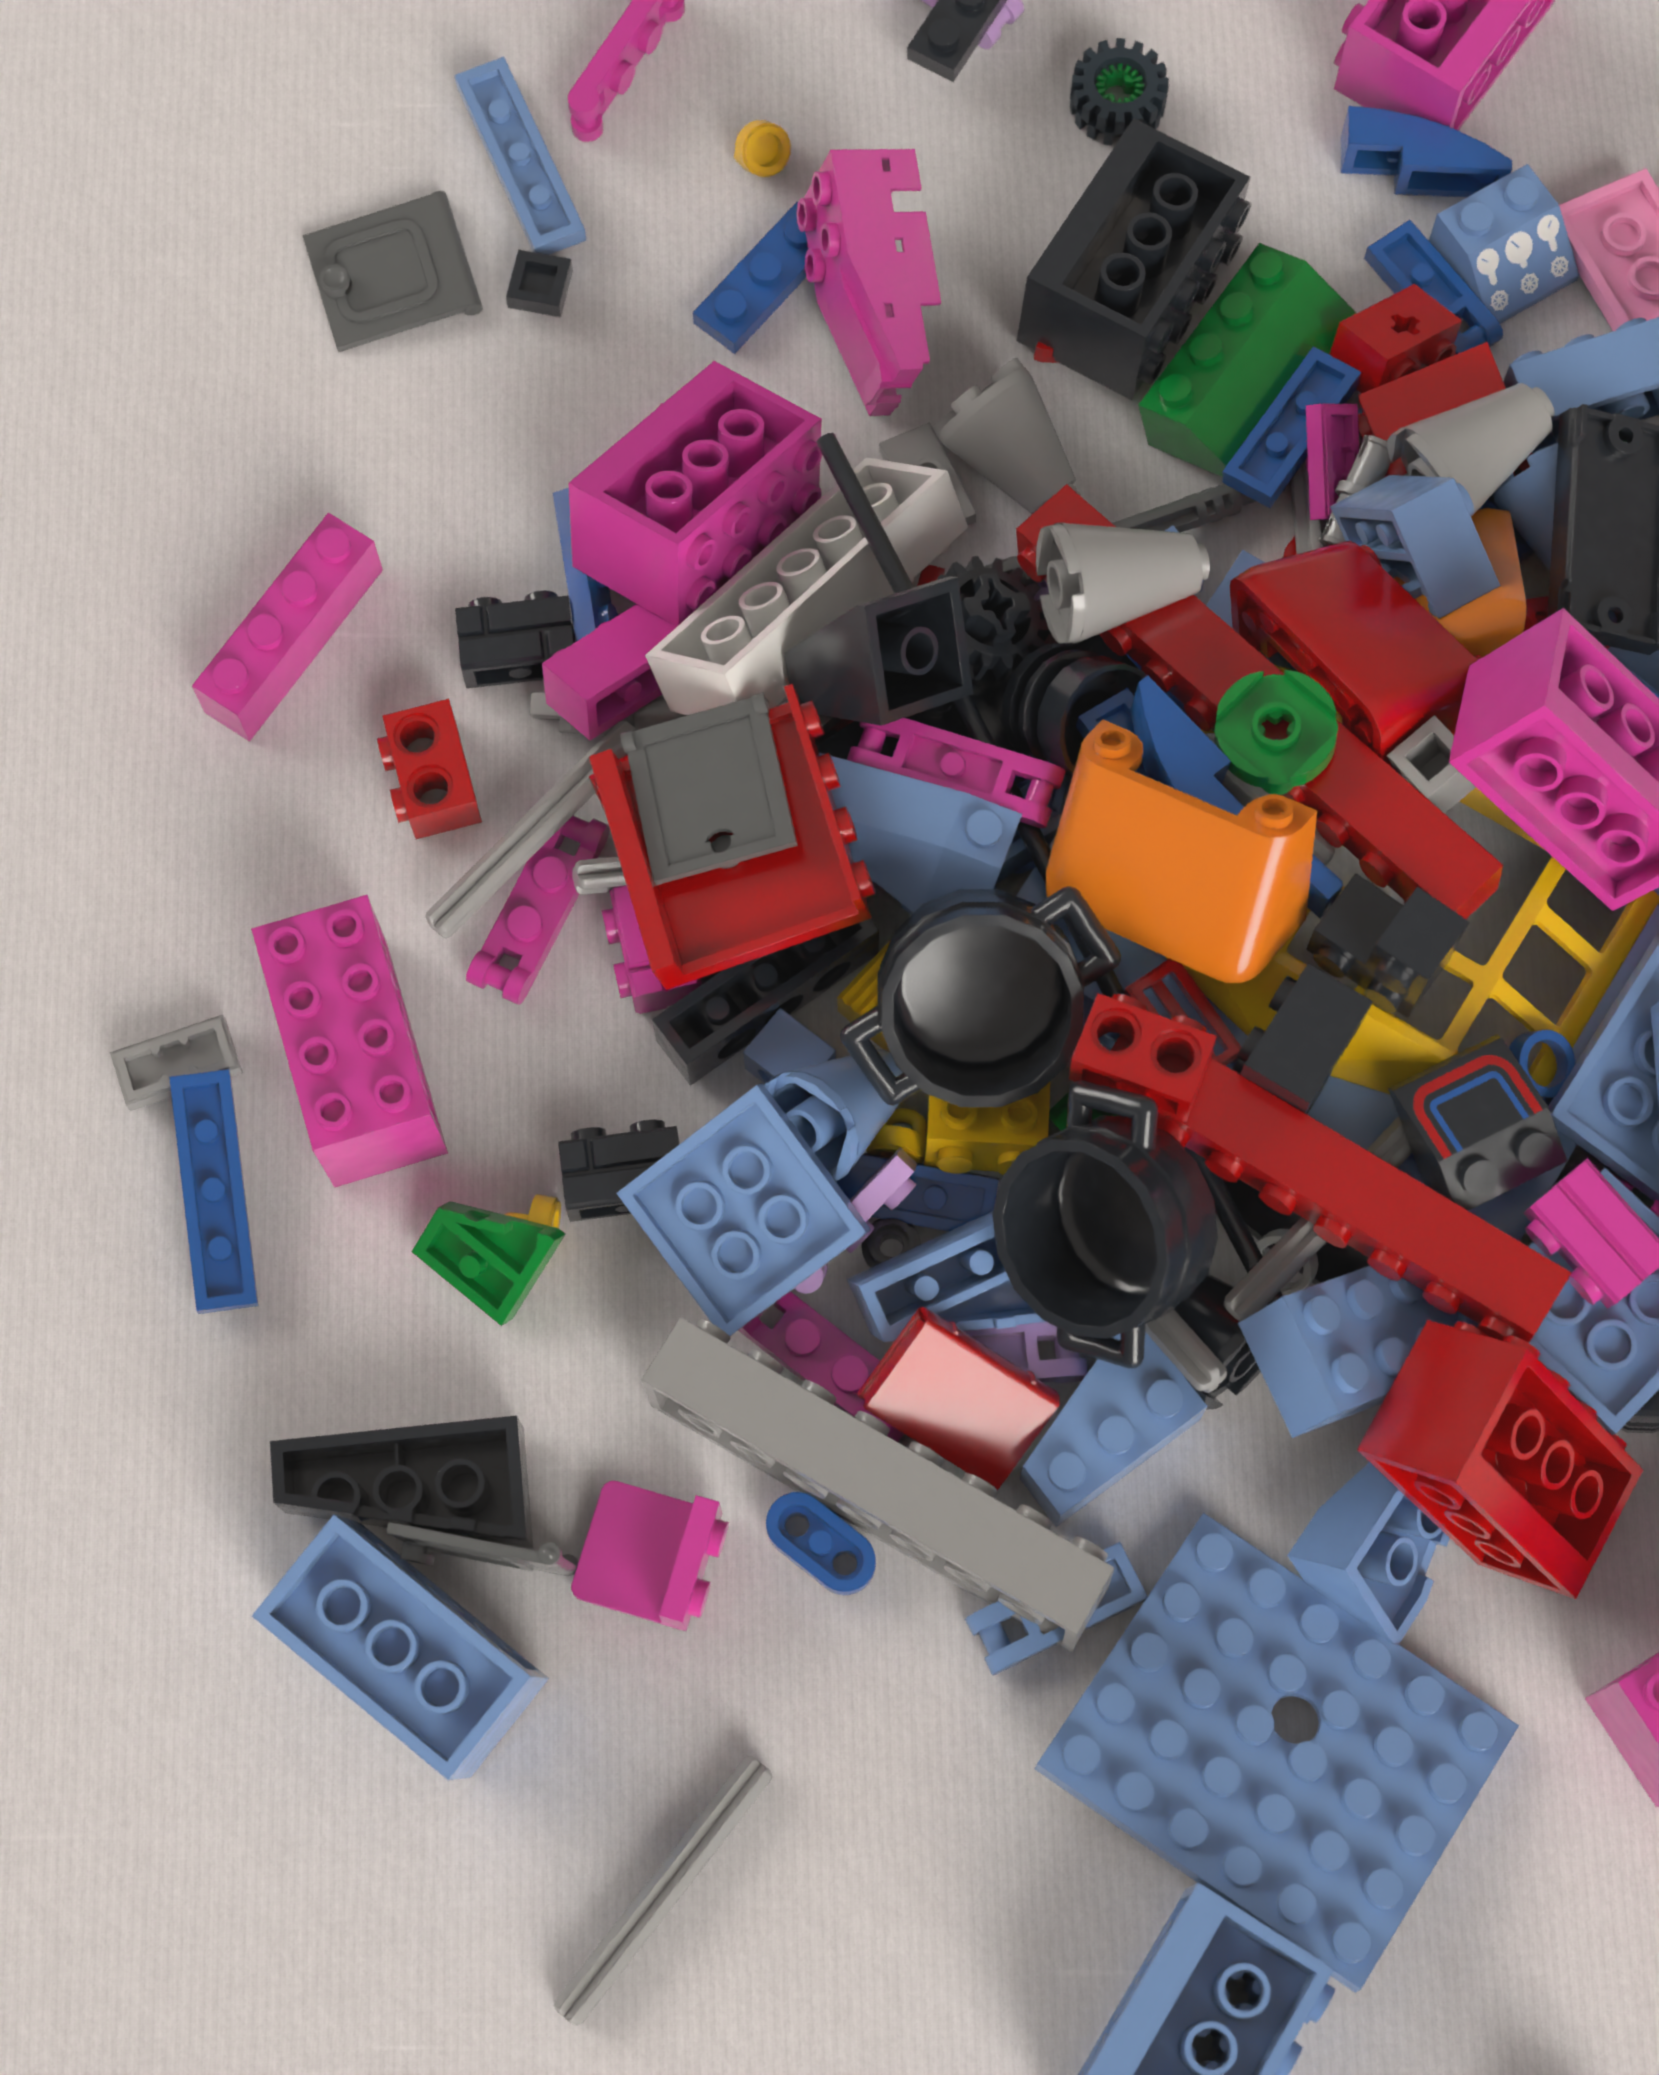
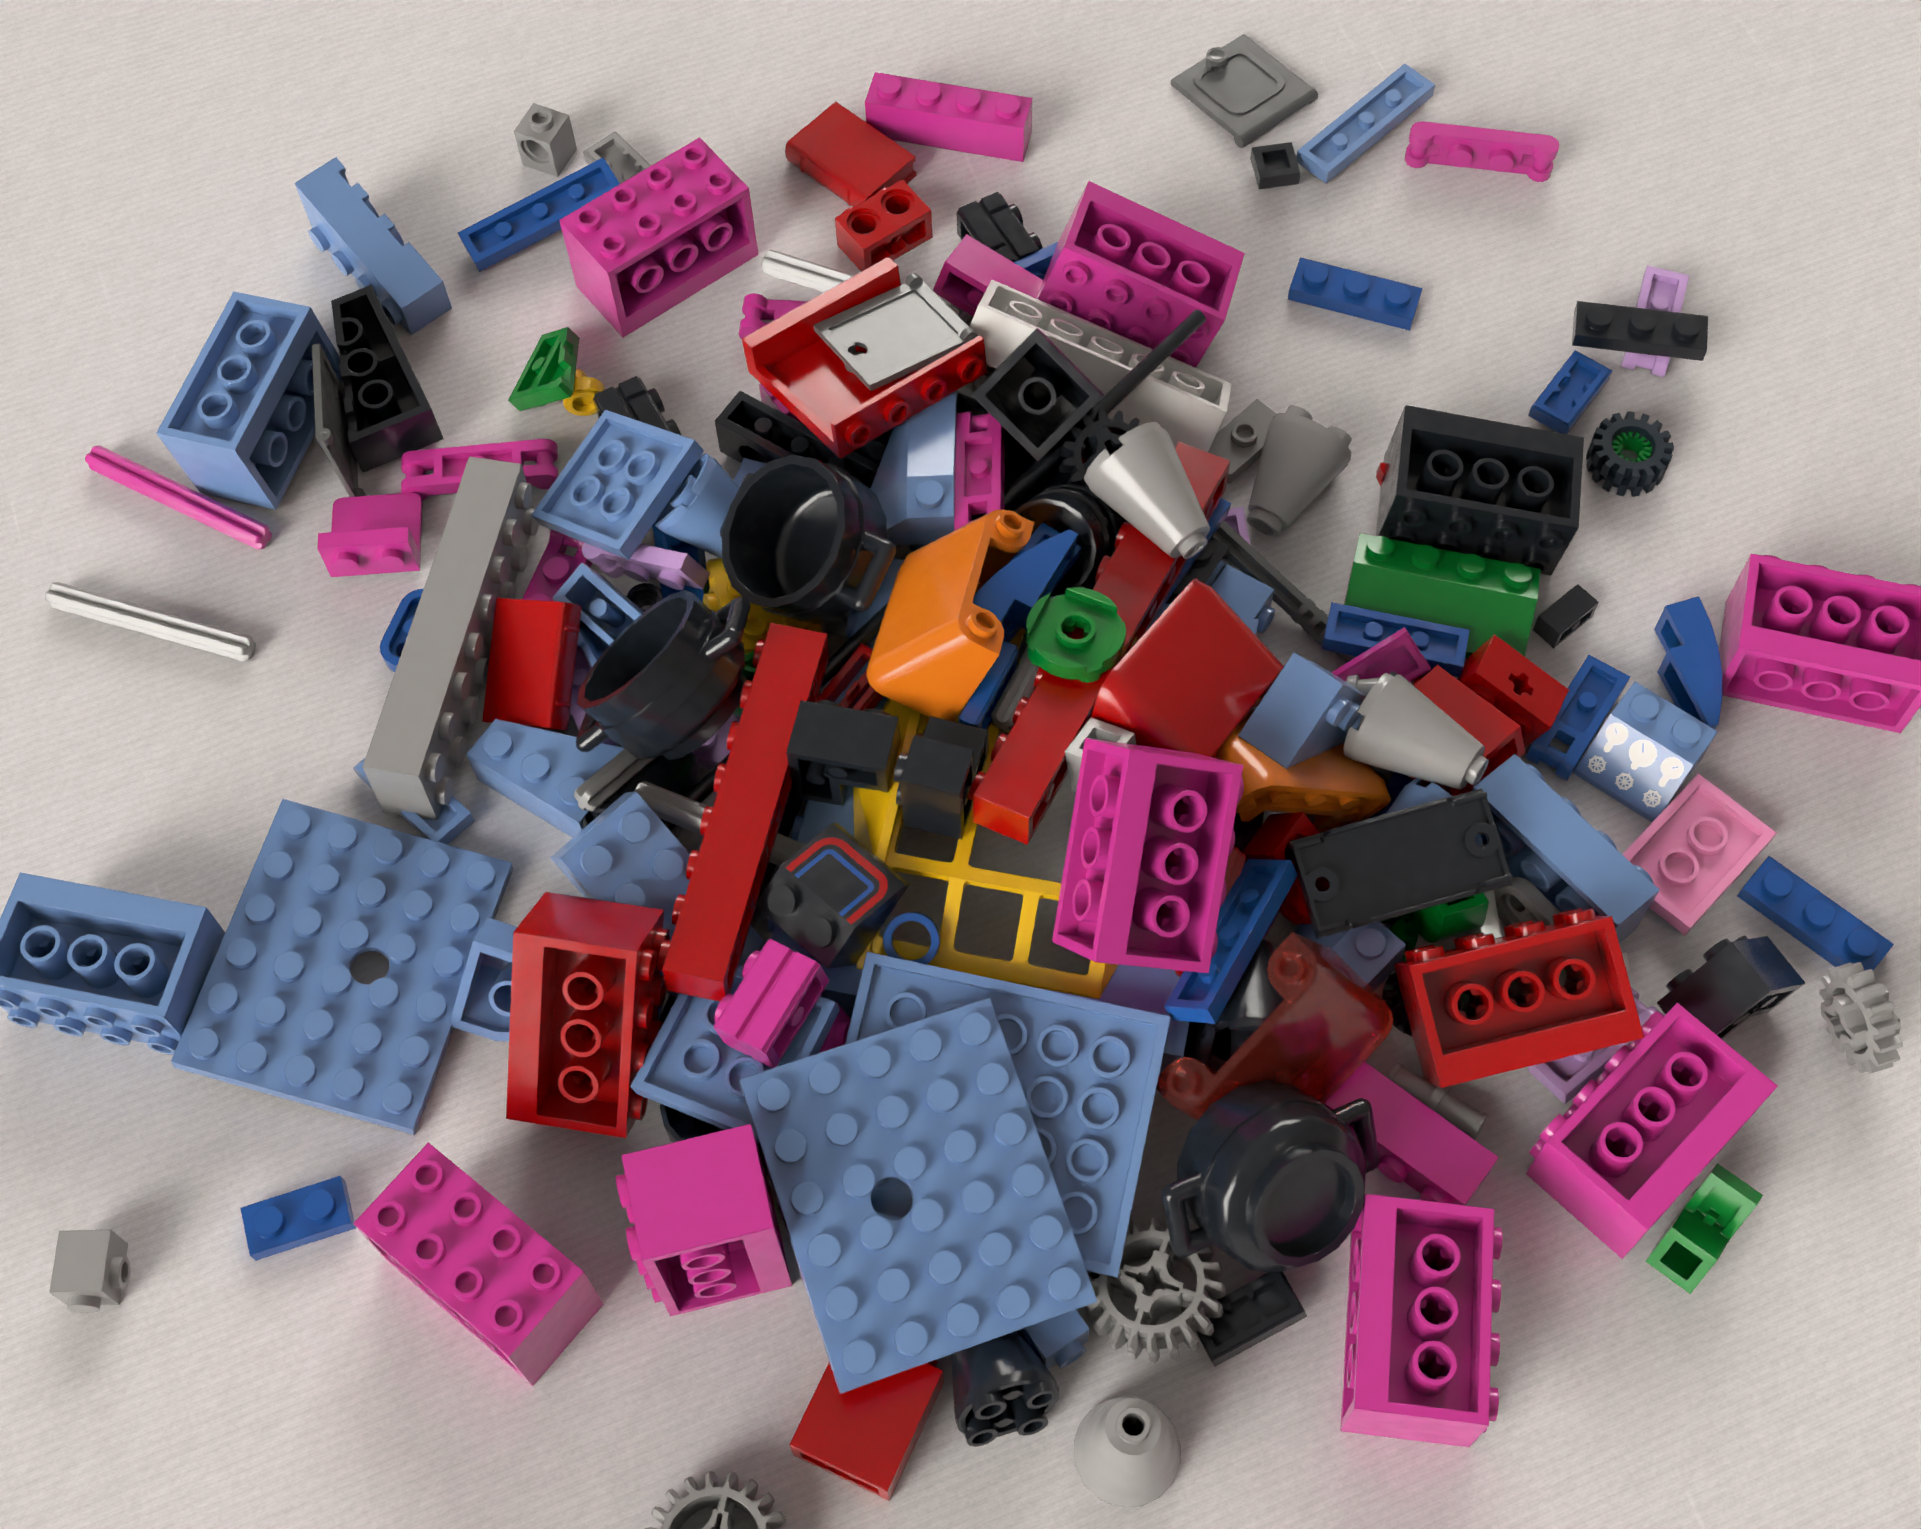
camera: 70 degrees right, 10 degrees down
(84, 1147) = (545, 139): none -> light grey brick
(181, 1433) = (370, 248): none -> medium blue wedge
(293, 771) = (849, 155): none -> red piece
(472, 1808) = (178, 497): none -> dark pink axle
(597, 1393) = (450, 462): none -> dark pink plate
(762, 148) = (1451, 253): yellow tile -> none
(859, 278) = (1368, 334): dark pink piece -> none
(1011, 114) = (1570, 393): none -> blue plate
(1138, 1065) = (778, 636): red brick -> none
(1297, 236) = (1565, 616): none -> black piece
(1582, 1893) = (297, 1218): none -> blue plate

